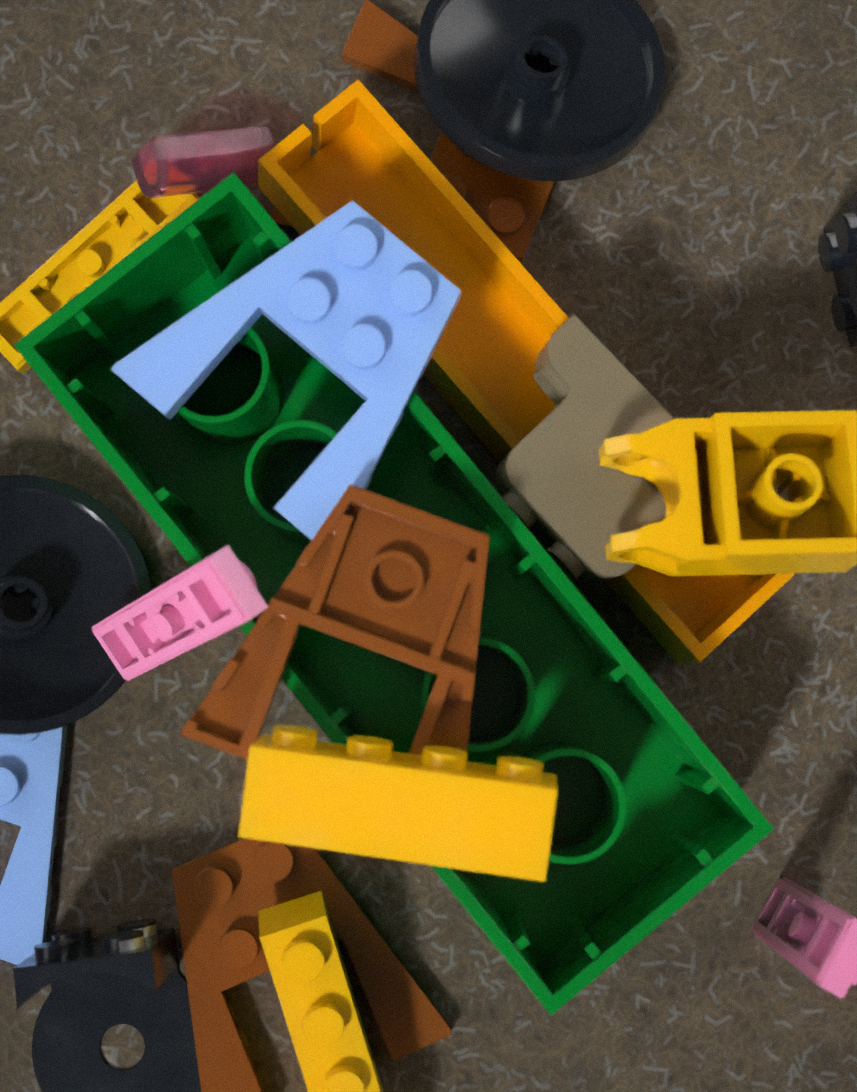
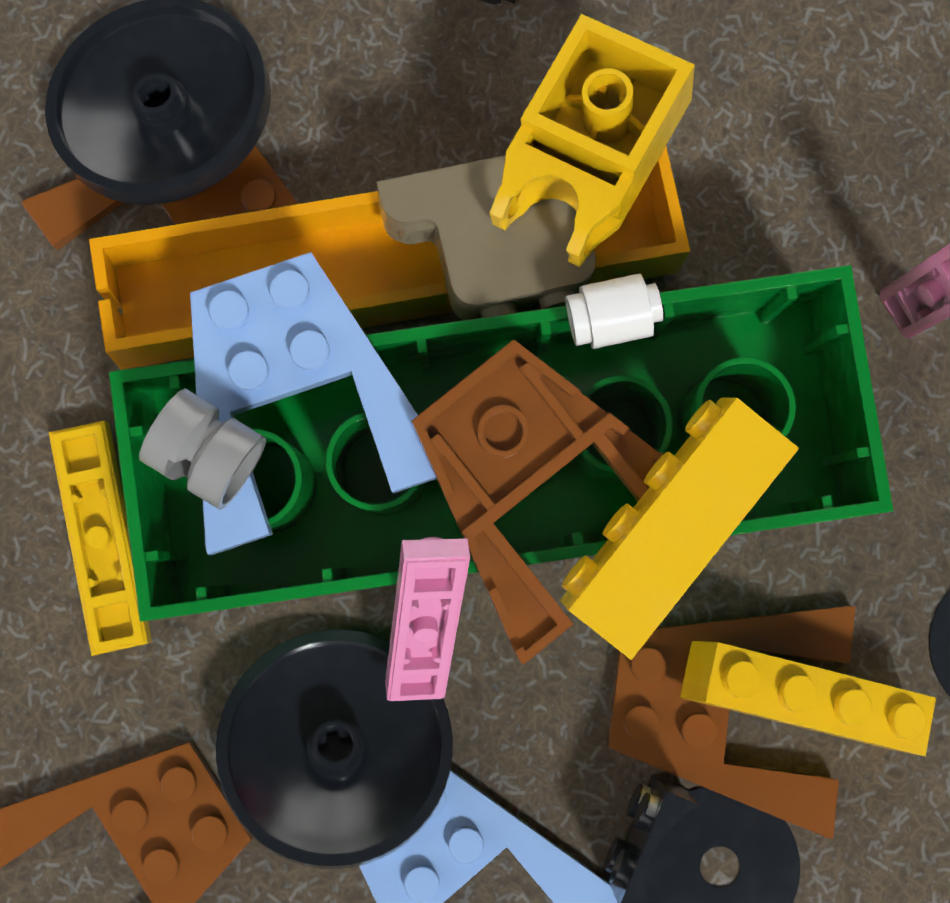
camera: 60 degrees left, 0 degrees up
(200, 160) = (74, 400): clear pink brick -> none
(203, 297) = (196, 445): none -> light grey wheel
(579, 618) = (614, 311): none -> white brick

